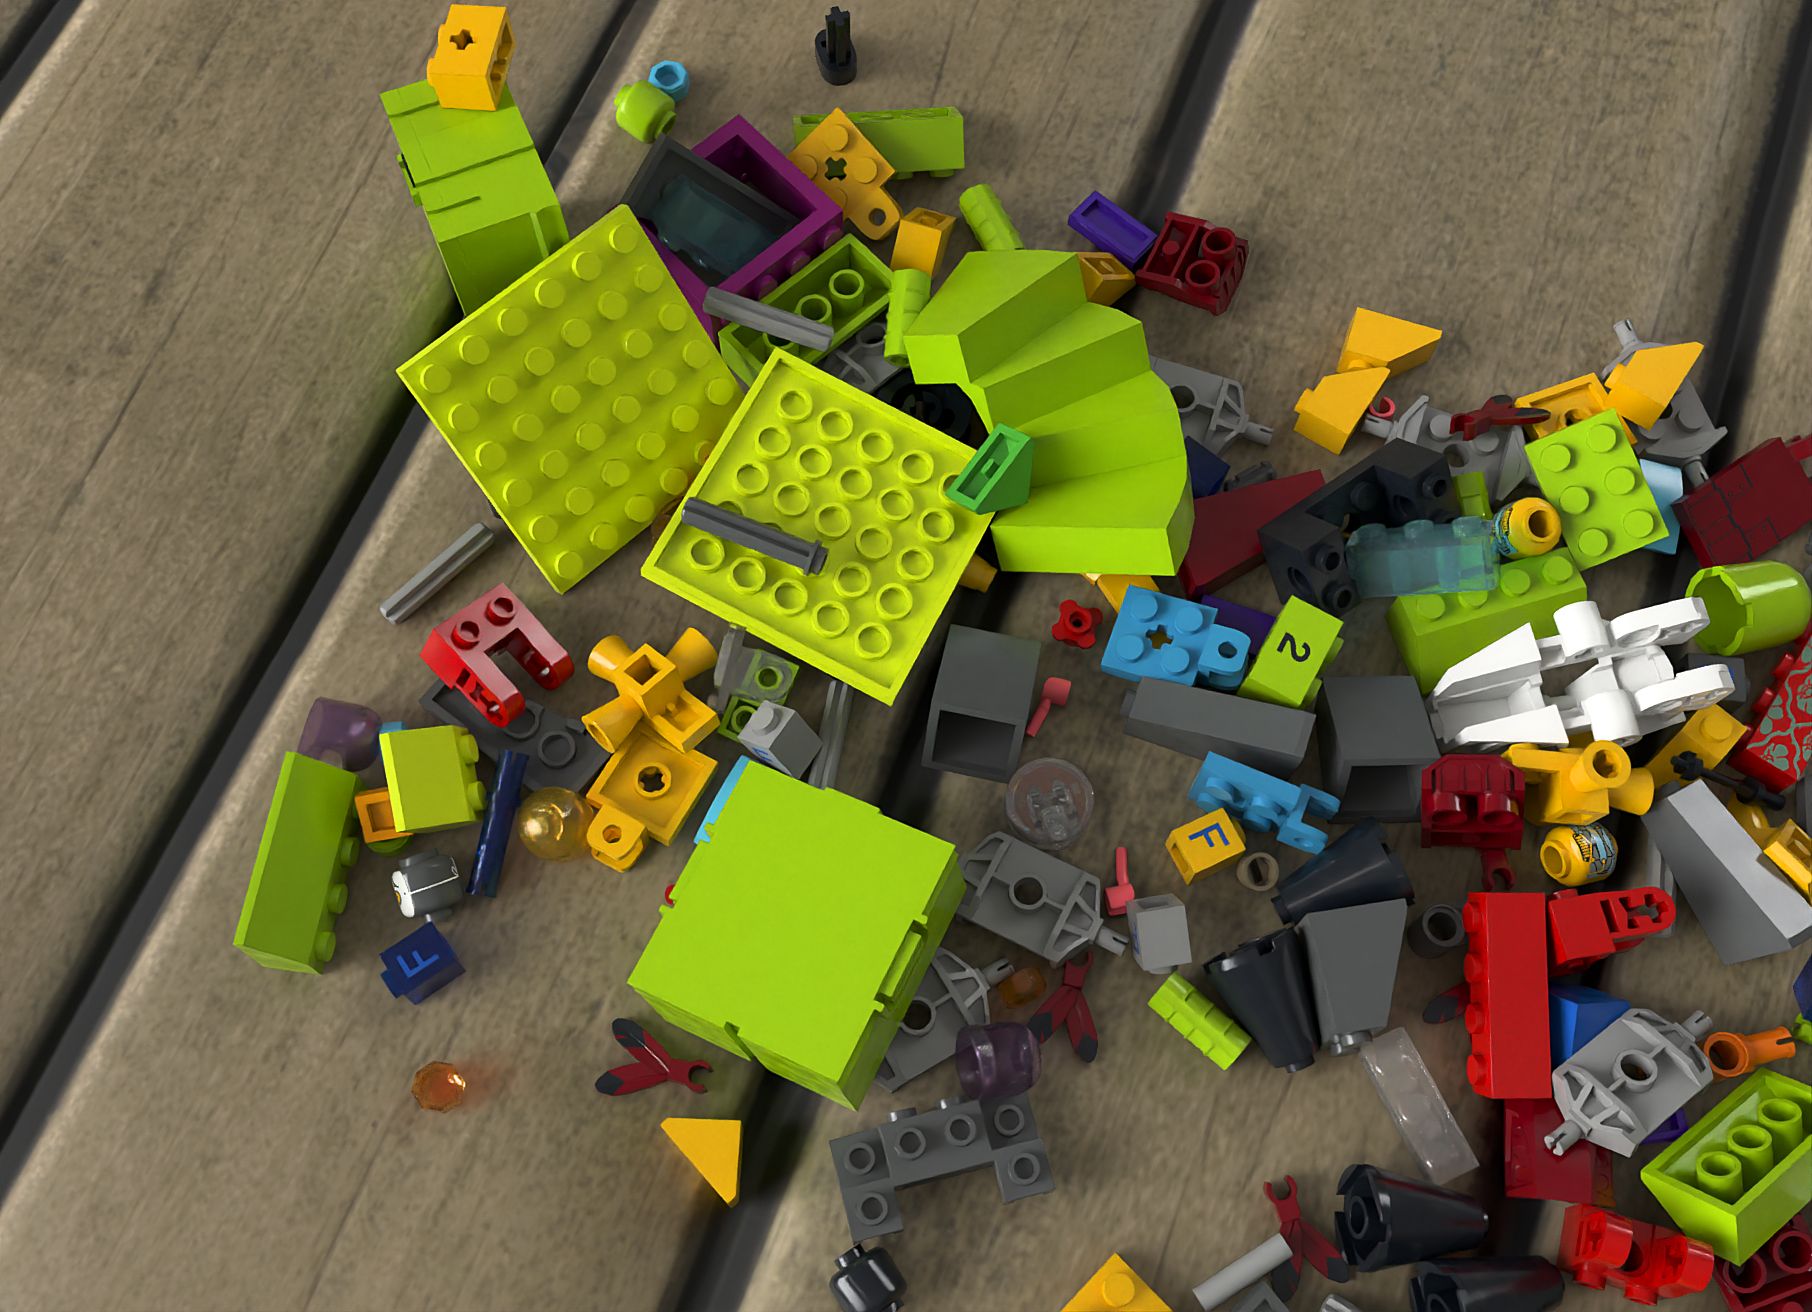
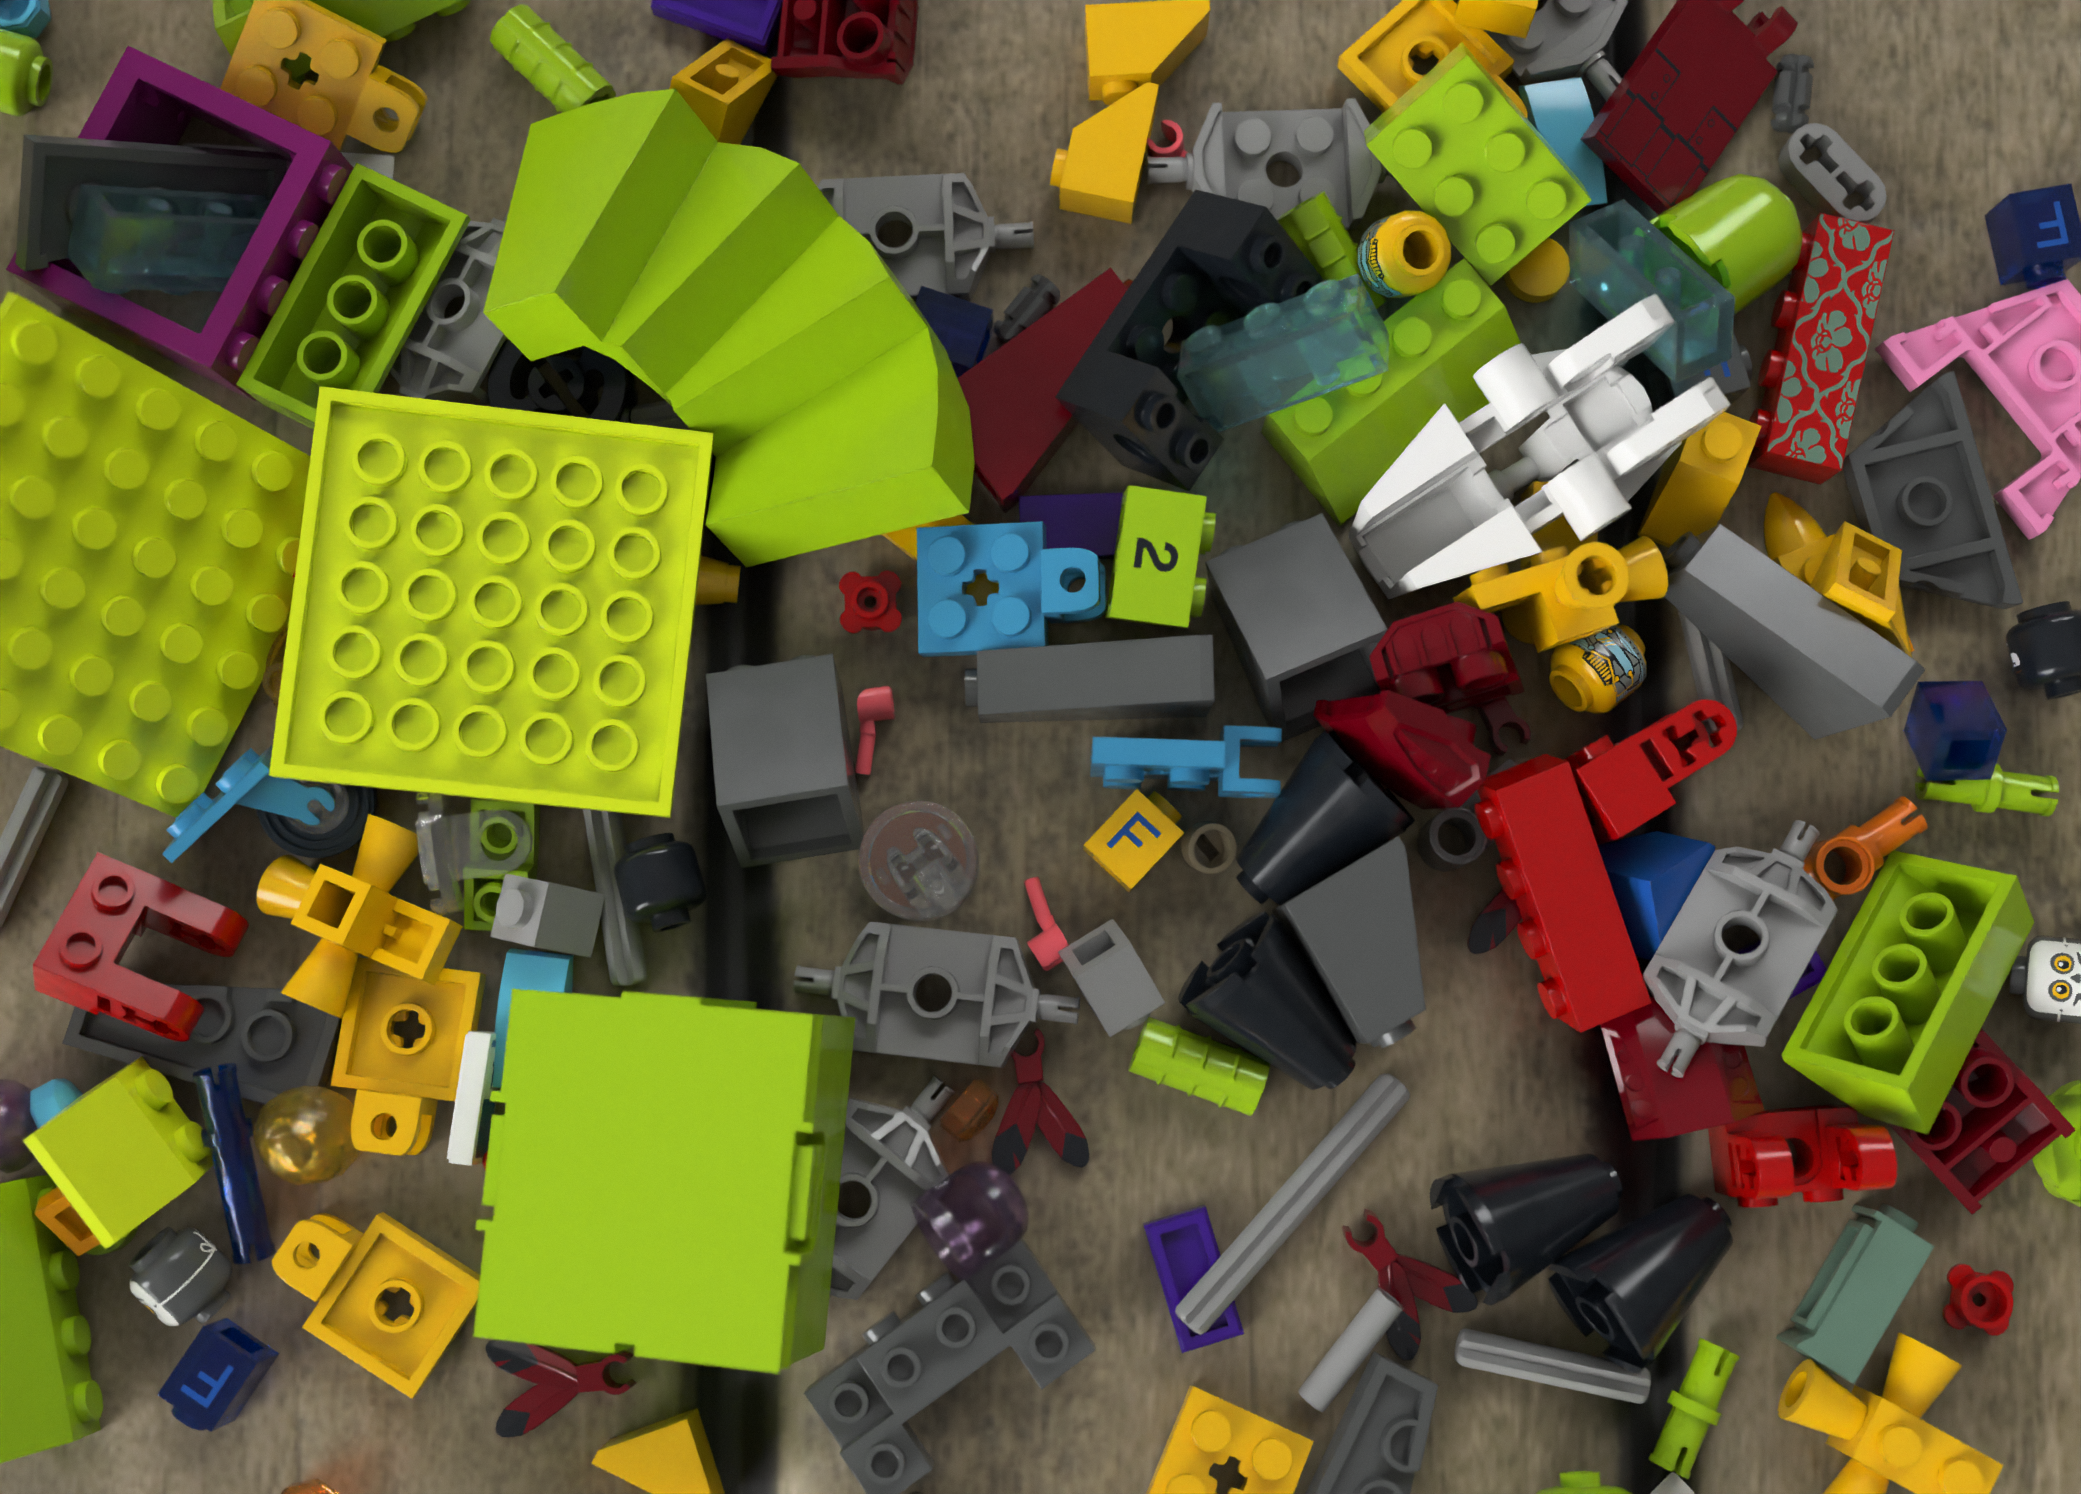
camera: 15 degrees left, 15 degrees up
(541, 936) = (350, 1286): none -> yellow plate
(641, 607) = (296, 814): none -> plate
(678, 844) = (472, 1105): none -> white tile
(755, 535) = (400, 672): dark grey axle -> none
(768, 319) = (292, 347): light grey axle -> none
(865, 748) = (659, 881): none -> black head
(907, 299) = (473, 242): lime axle -> none
(922, 241) = (464, 128): yellow slope -> none
(996, 474) = (685, 456): bright green slope -> none
(1141, 1175) = (1183, 1253): none -> dark purple tile
(1234, 1145) = (1292, 1203): none -> light grey axle
(1417, 1107) = (1497, 1069): clear plate -> none
(1431, 845) = (1408, 747): none -> dark red slope
(1495, 411) = (1316, 92): dark red piece -> none
(1612, 581) = (1539, 273): none -> yellow tile
(1680, 575) = (1625, 259): none -> clear light blue brick
(1748, 790) = (1785, 500): black piece -> none

